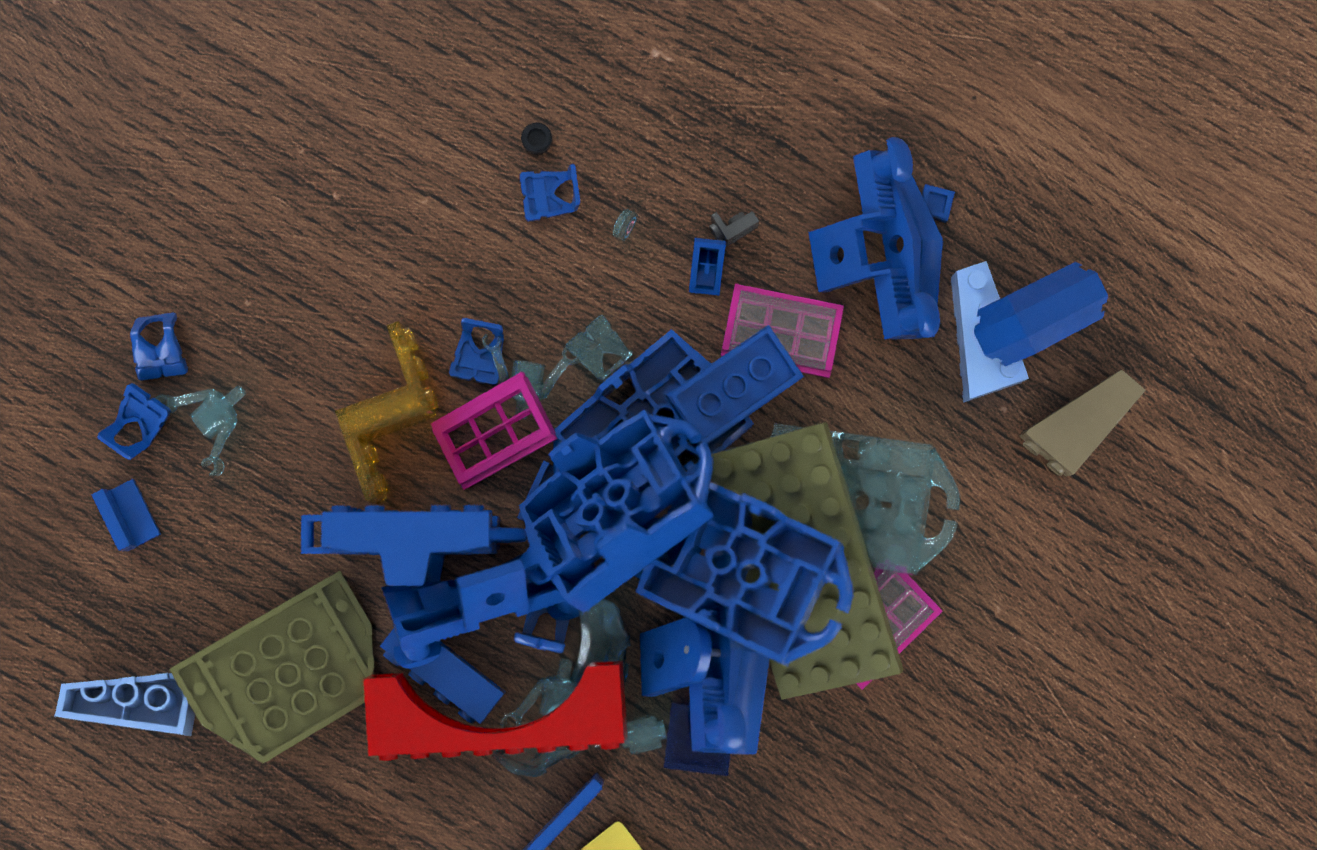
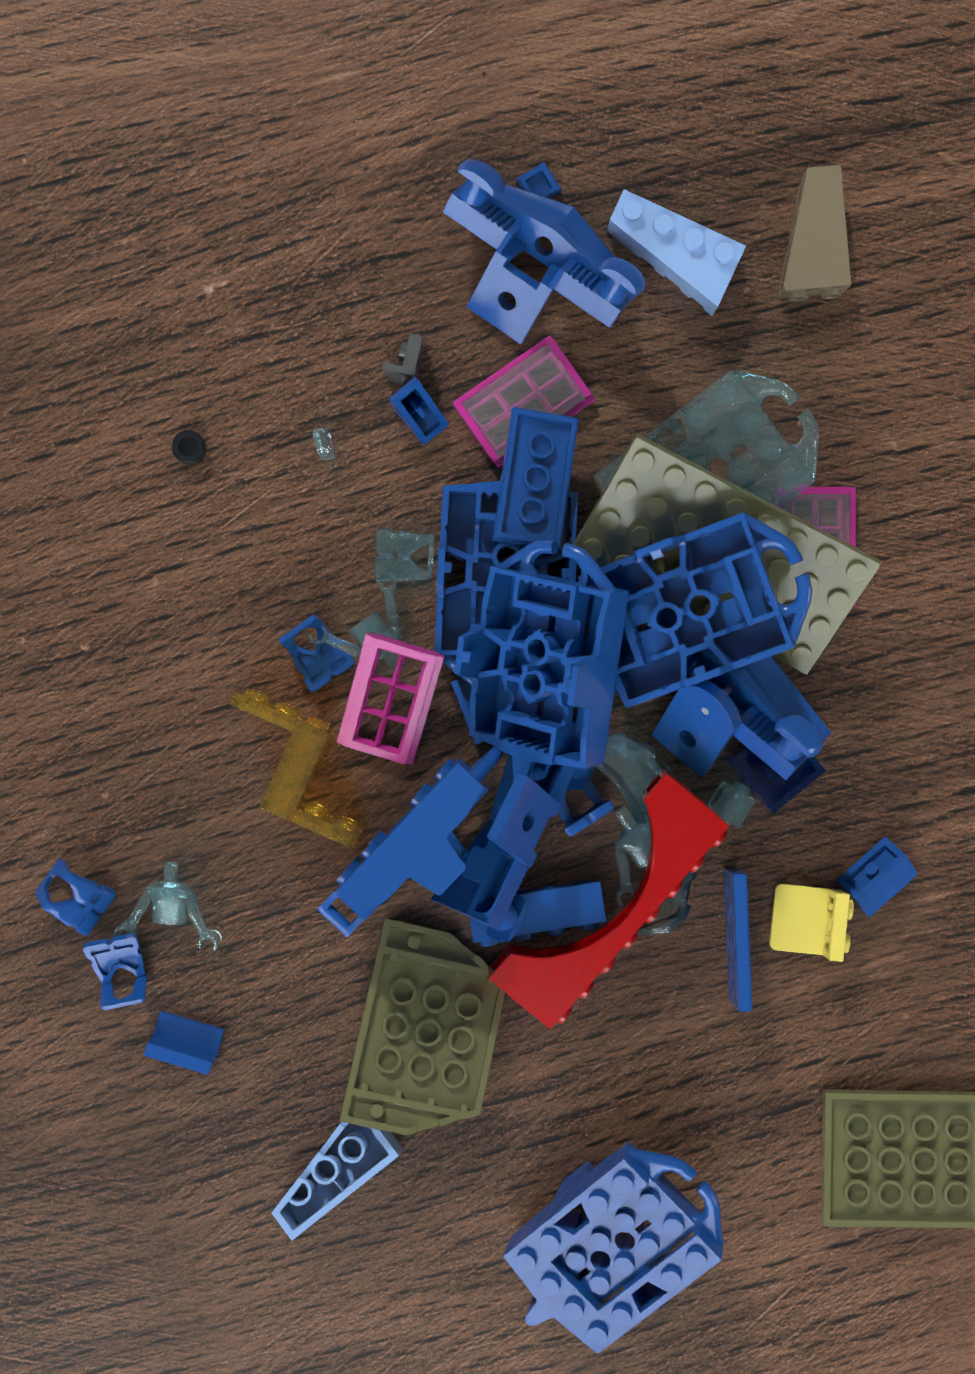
camera: 45 degrees left, 5 degrees up
(540, 196) = (235, 486): blue piece -> none
(1040, 314) = (707, 186): blue brick -> none

